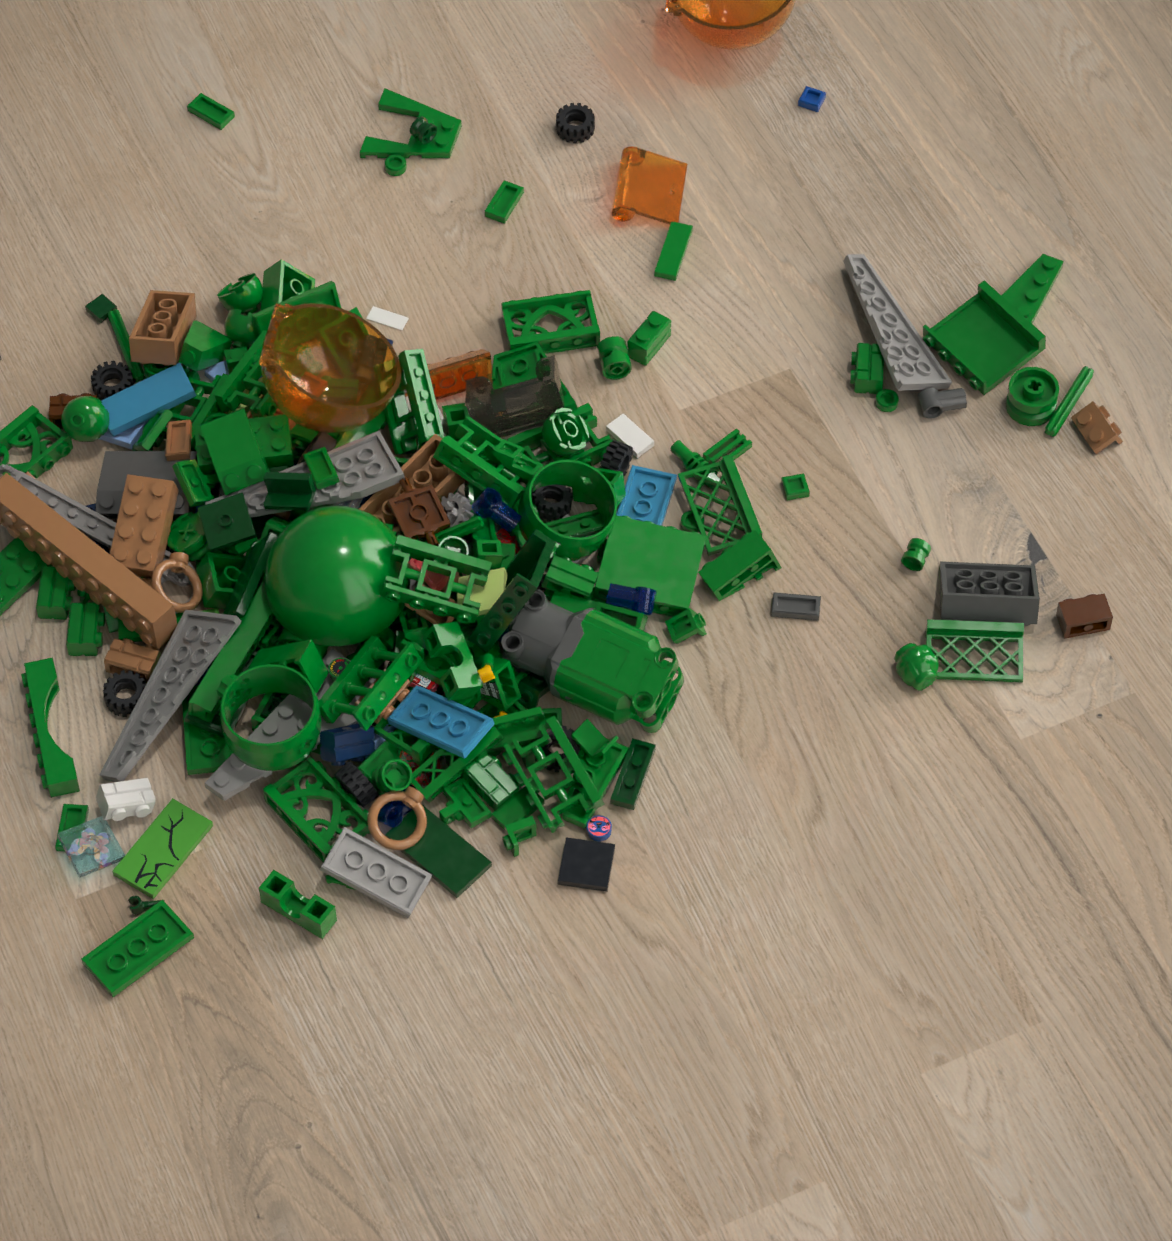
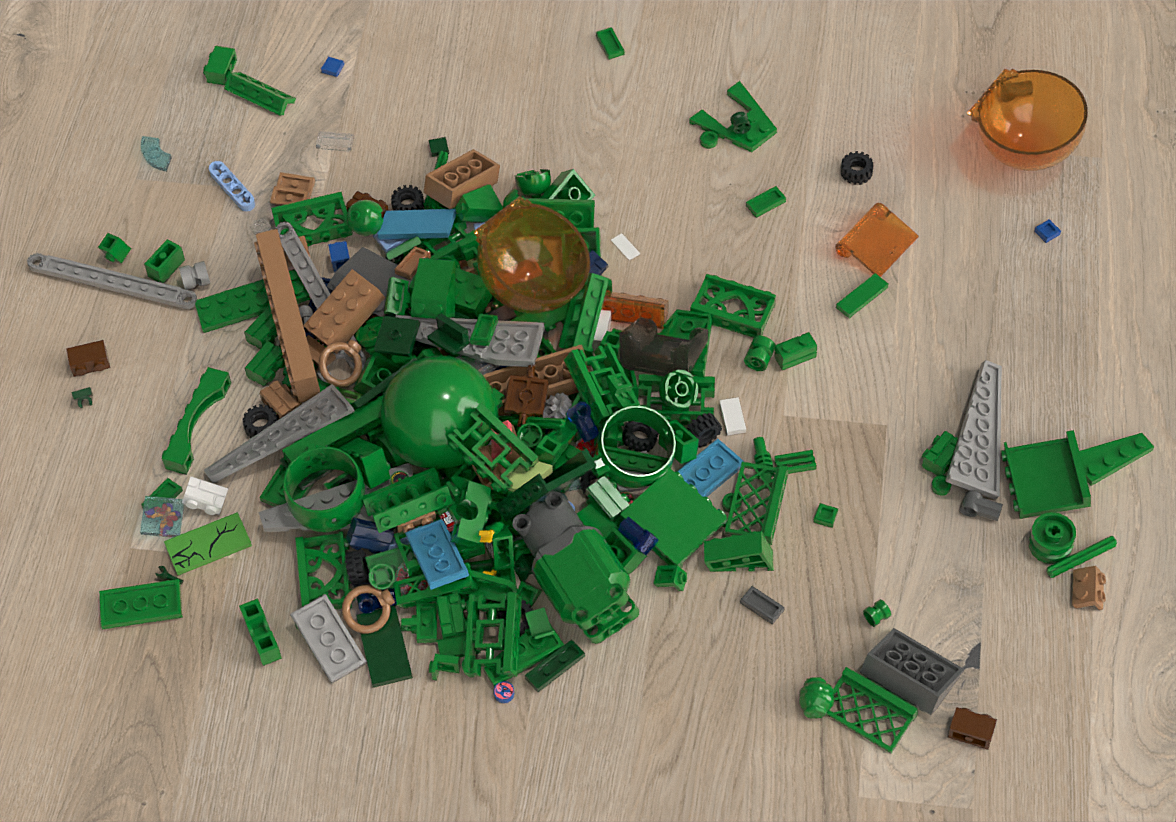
camera: 35 degrees right, 0 degrees up
(80, 476) = (339, 254): none -> blue brick
(586, 864) = (476, 713): black tile -> none

